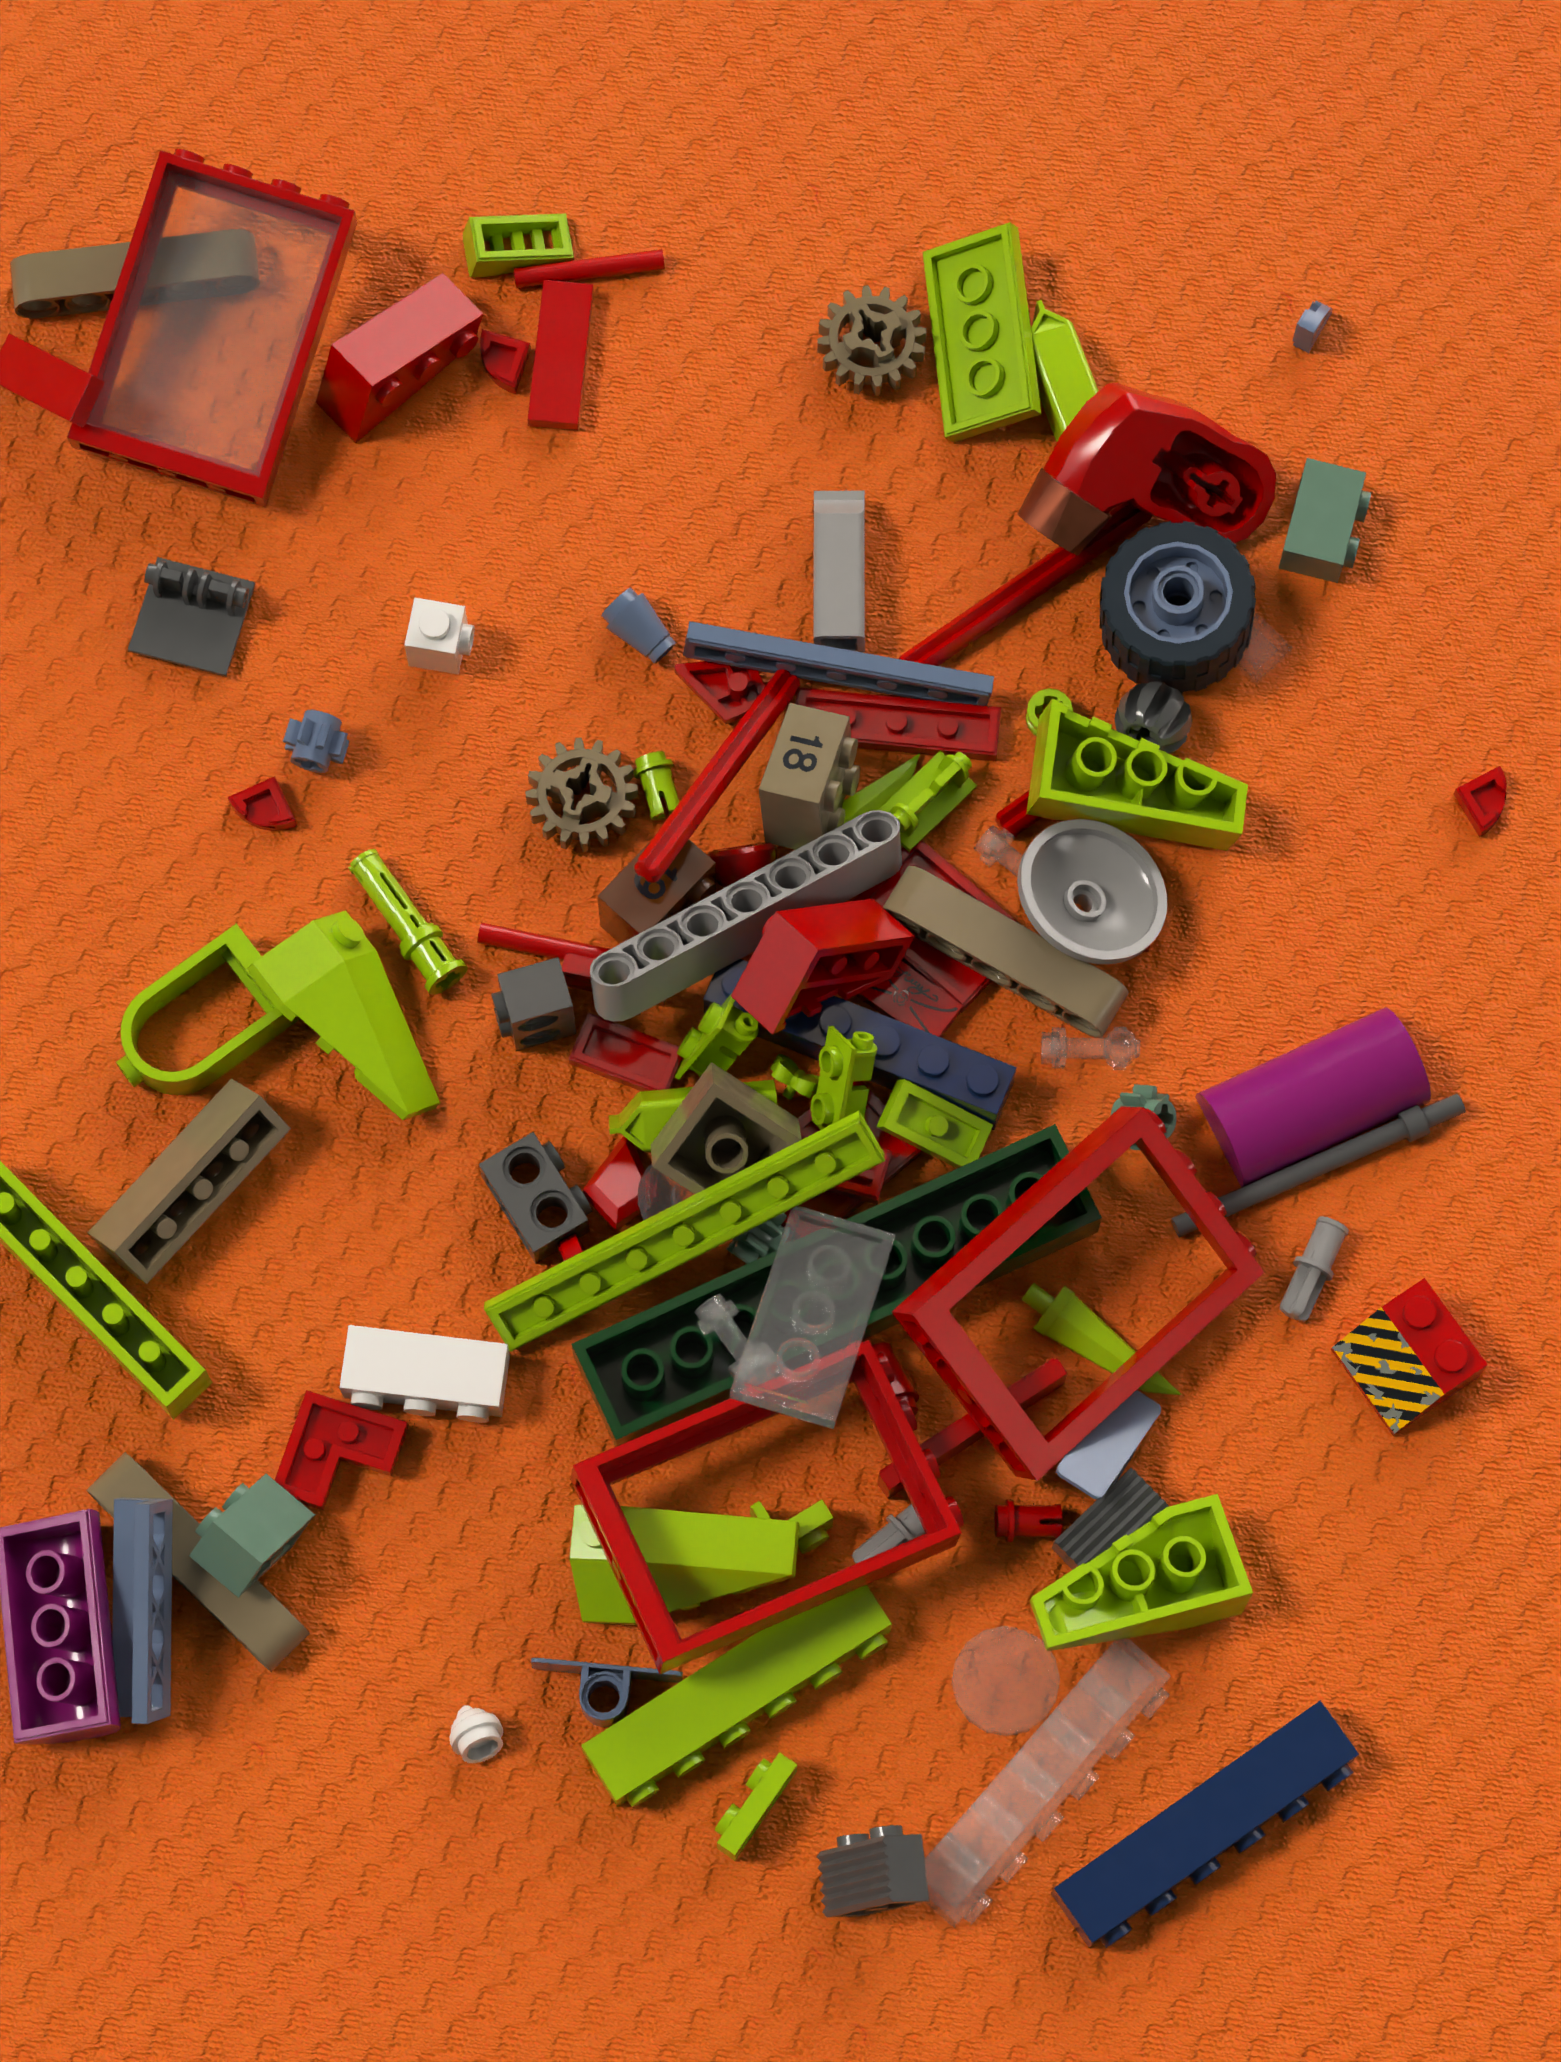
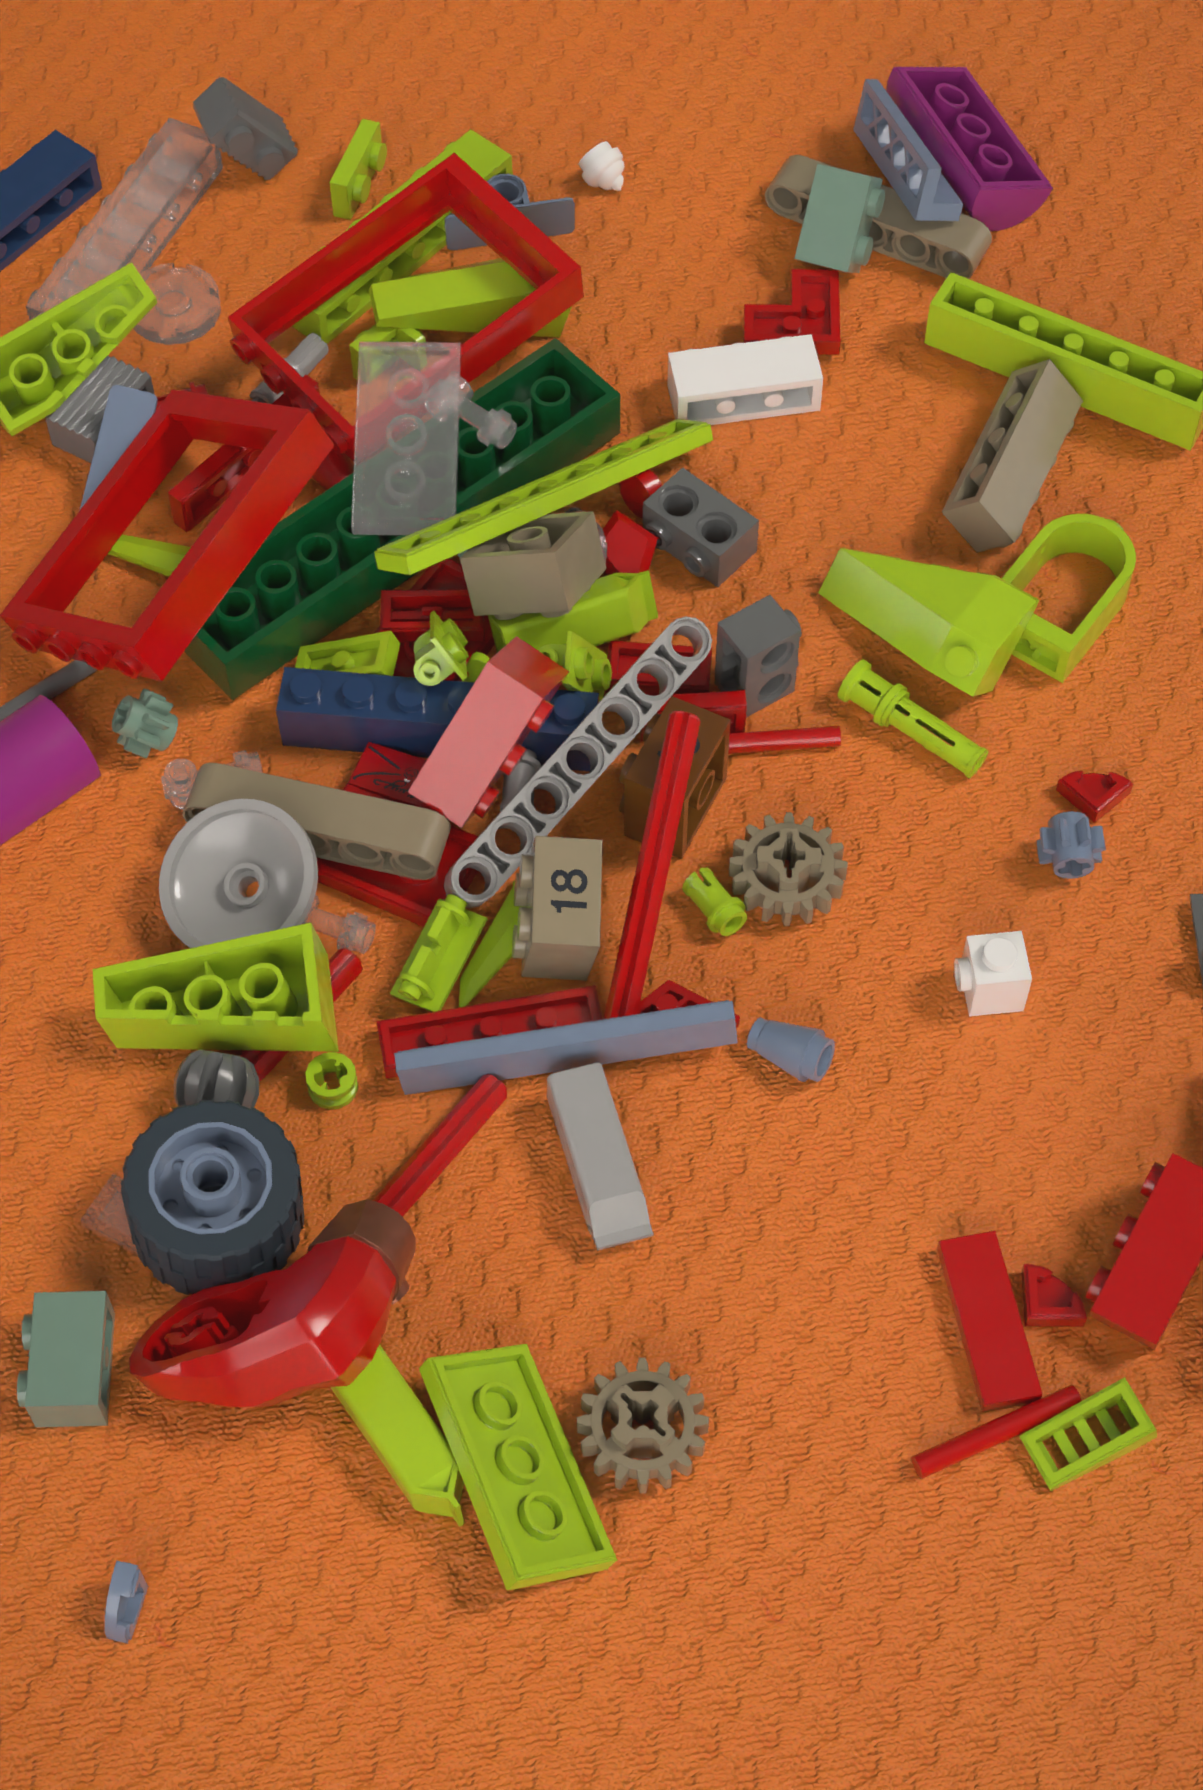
camera: 165 degrees right, 15 degrees down
(741, 861) = (619, 838): red brick -> none

